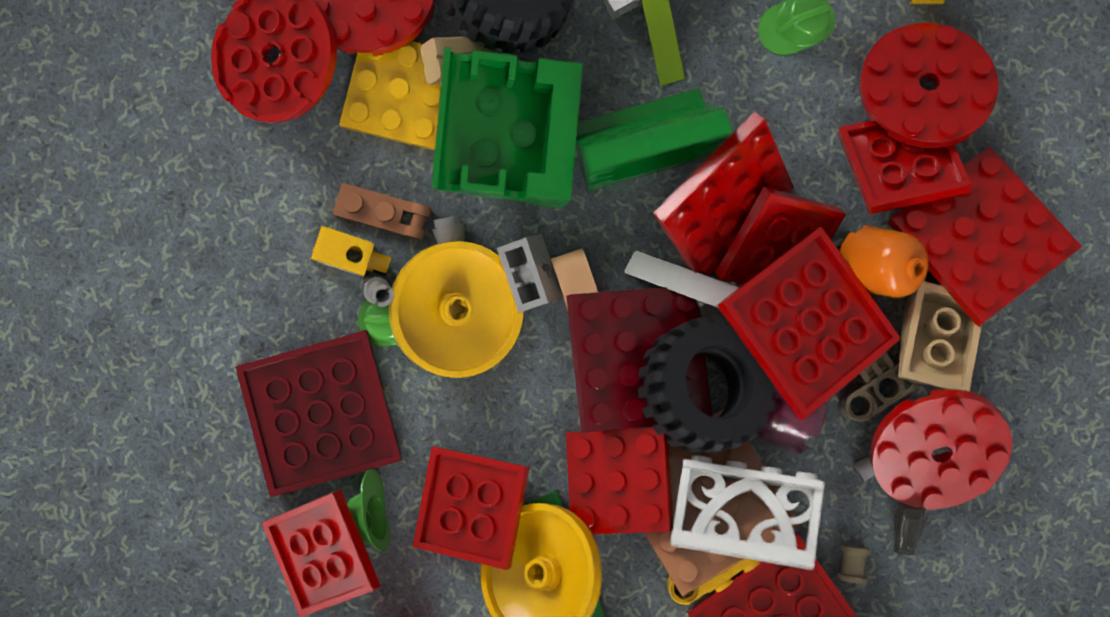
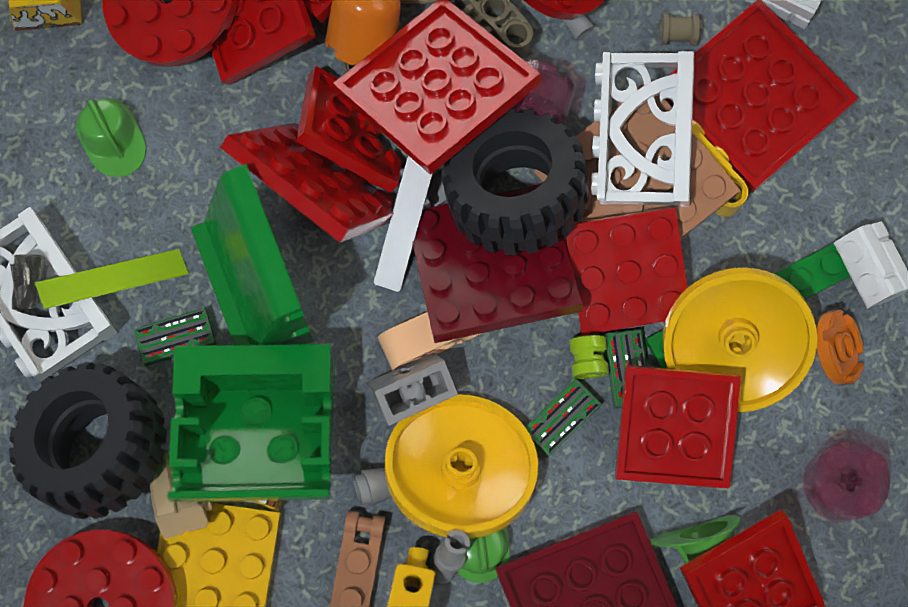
camera: 100 degrees left, 10 degrees down
(493, 405) = (562, 417): none -> tile
(543, 436) = (588, 357): none -> lime wheel
(545, 470) = (622, 350): none -> tile
(602, 69) = (159, 339): none -> tile

